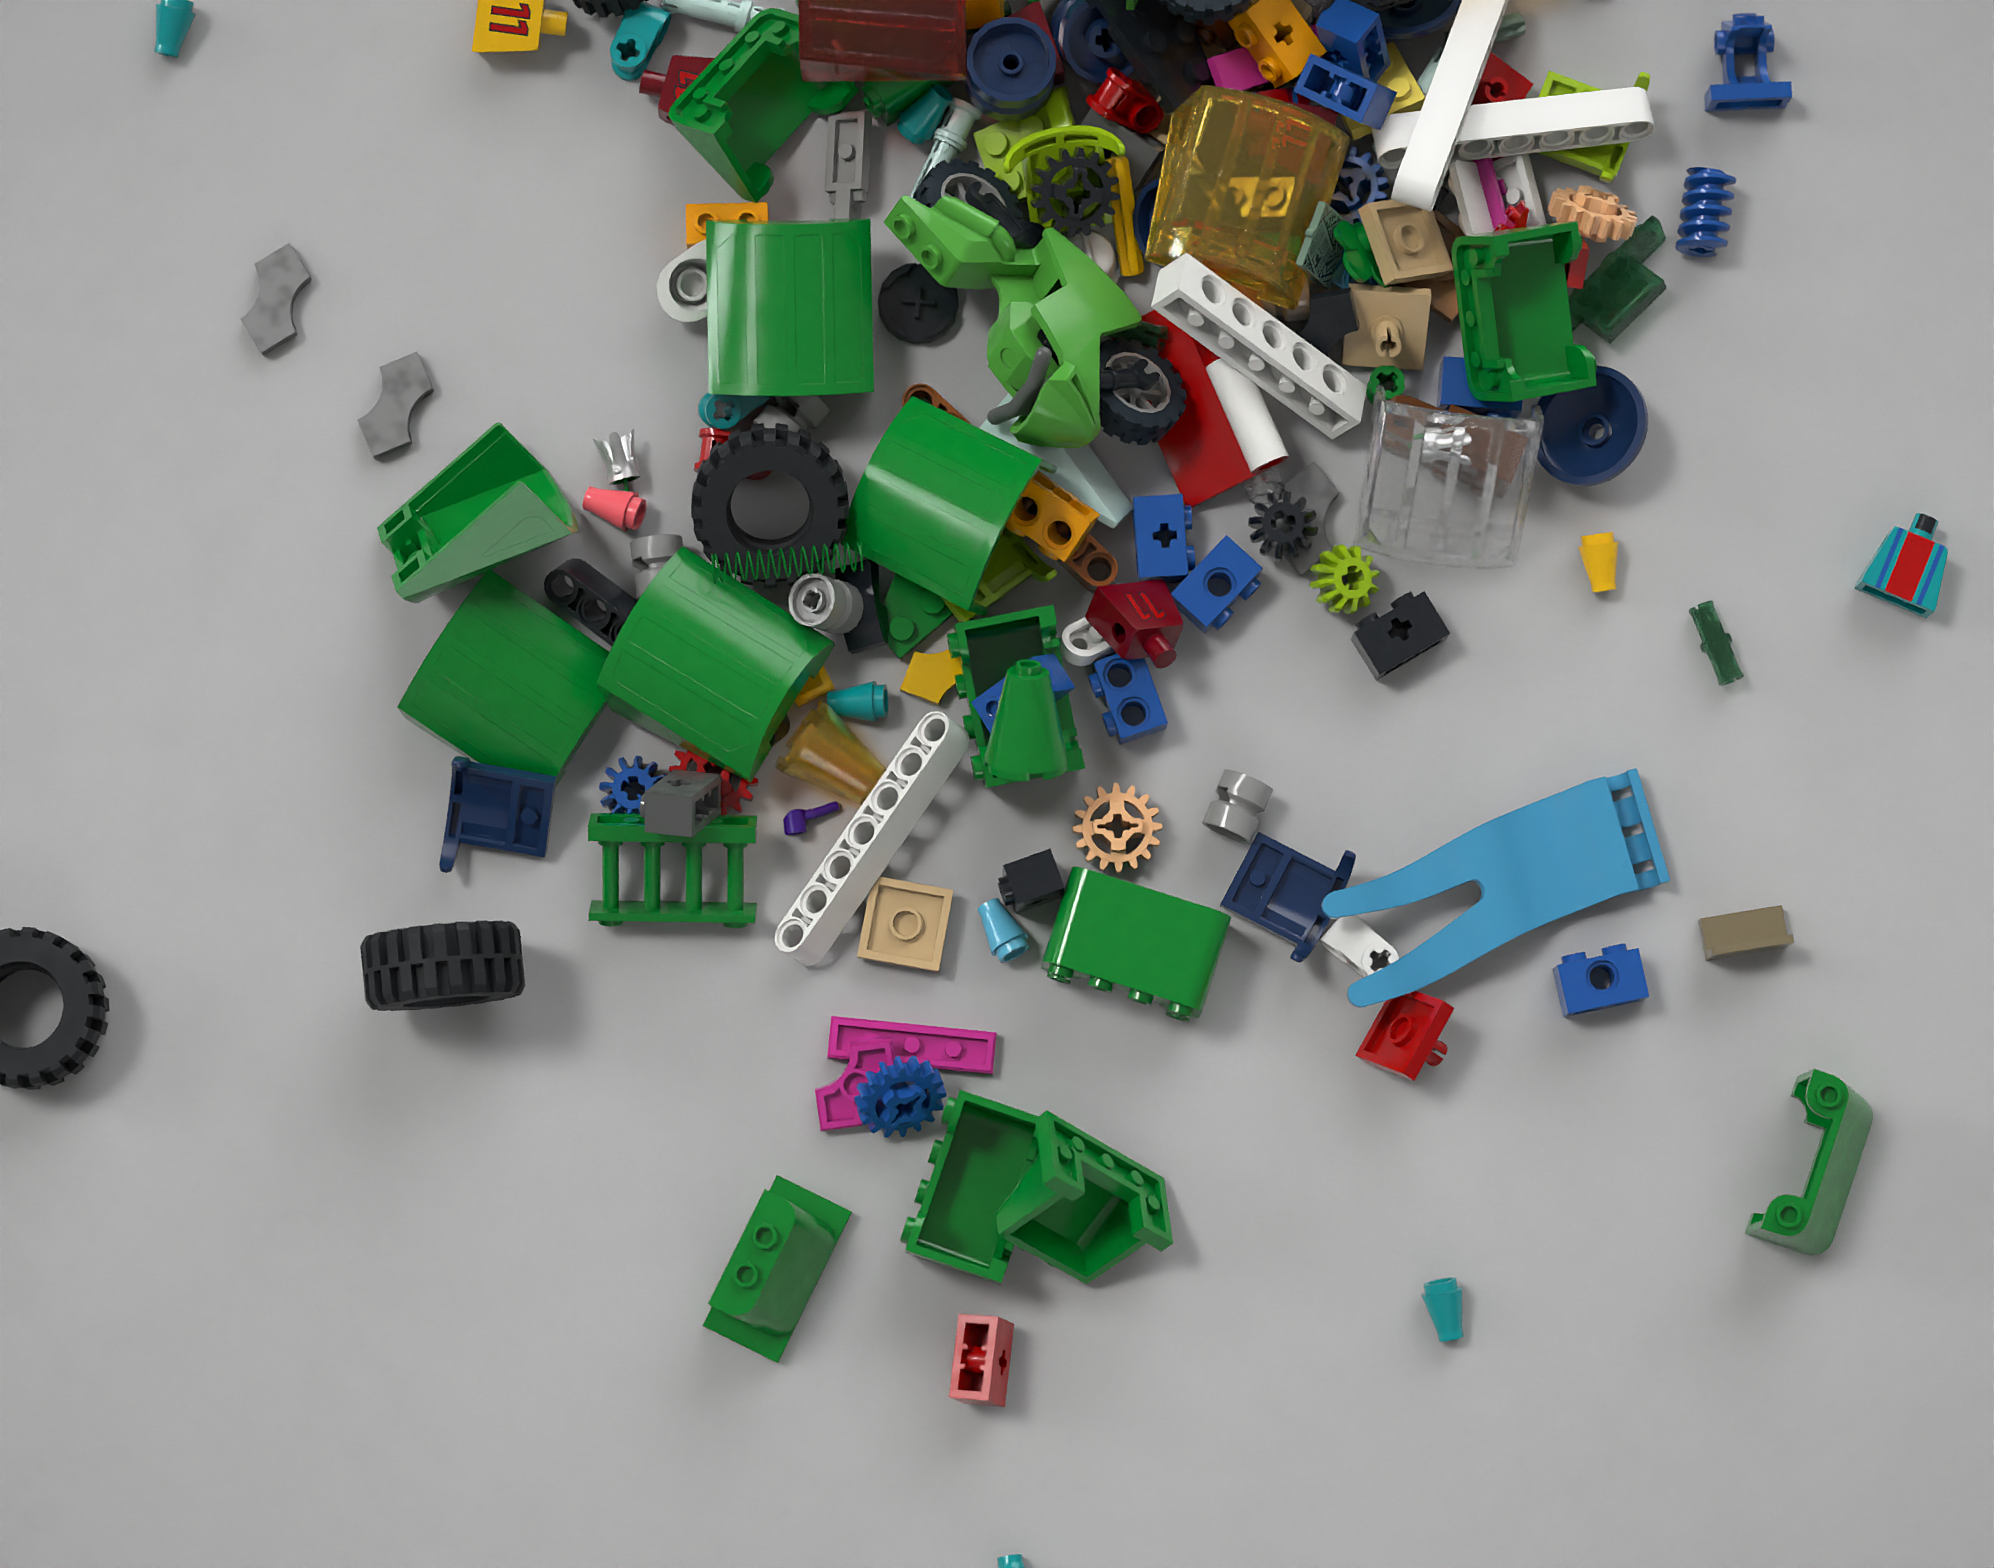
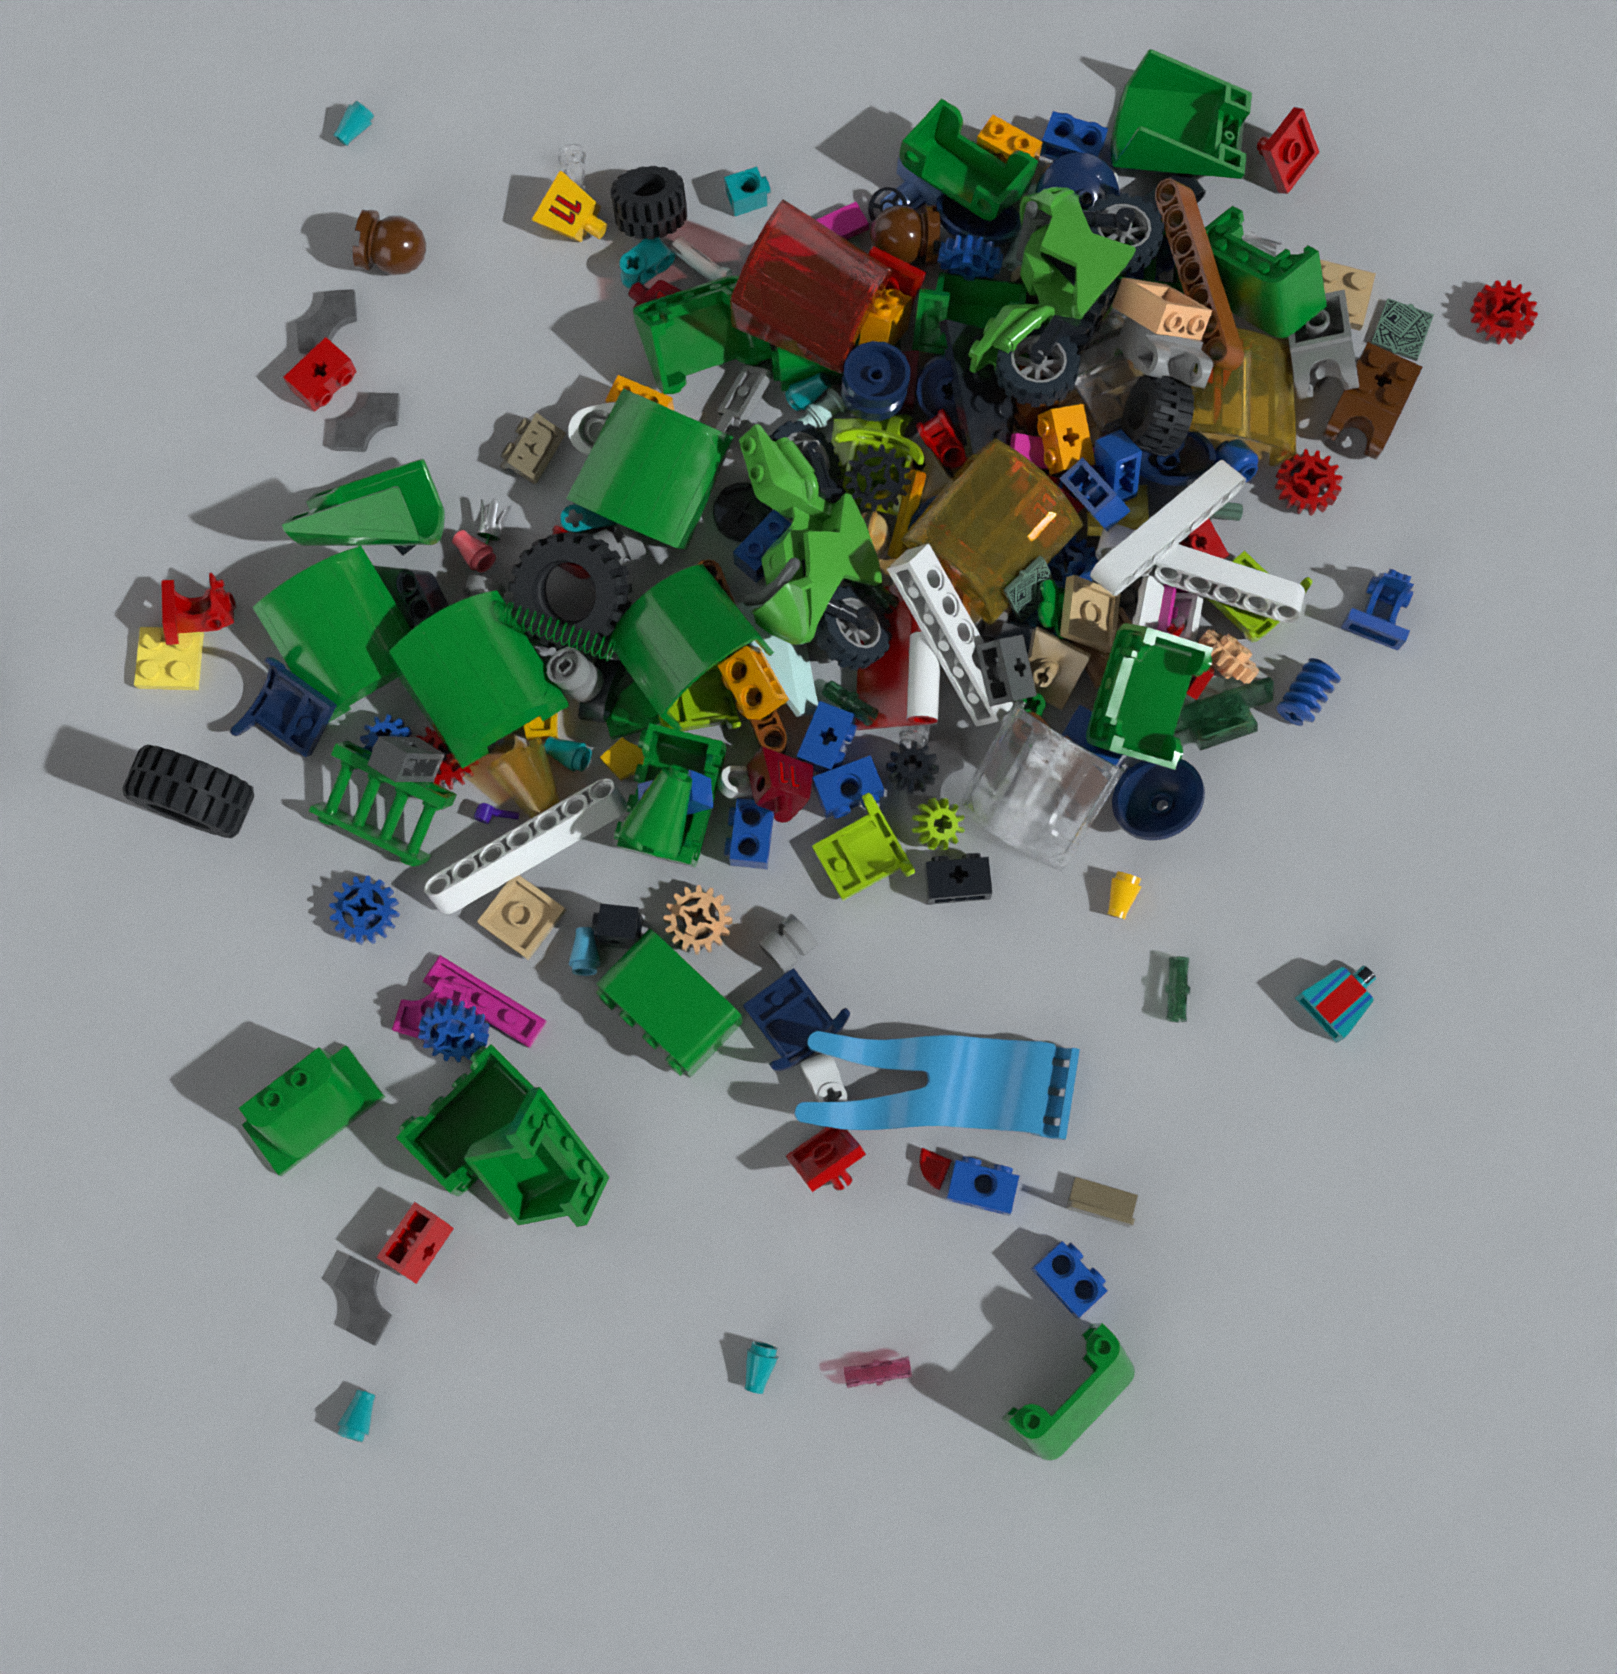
camera: 30 degrees right, 5 degrees down
(292, 749) = (196, 614): none -> red tile
(304, 351) = (306, 376): none -> red brick
(310, 815) = (168, 665): none -> light yellow plate
(311, 165) = (390, 243): none -> reddish brown tile
(619, 343) = (532, 448): none -> dark tan bracket
(733, 1000) = (351, 907): none -> blue gear
(965, 1472) = (367, 1315): none -> flat silver tile
(968, 335) = (752, 549): none -> blue brick
(1166, 480) = (850, 702): none -> clear green axle
(1272, 656) = (862, 853): none -> lime piece
(1342, 358) = (1006, 670): none -> dark grey brick
(1532, 986) = (933, 1167): none -> red tile
(1582, 1248) = (877, 1372): none -> clear pink pin
(1746, 1048) = (1063, 1285): none -> blue brick

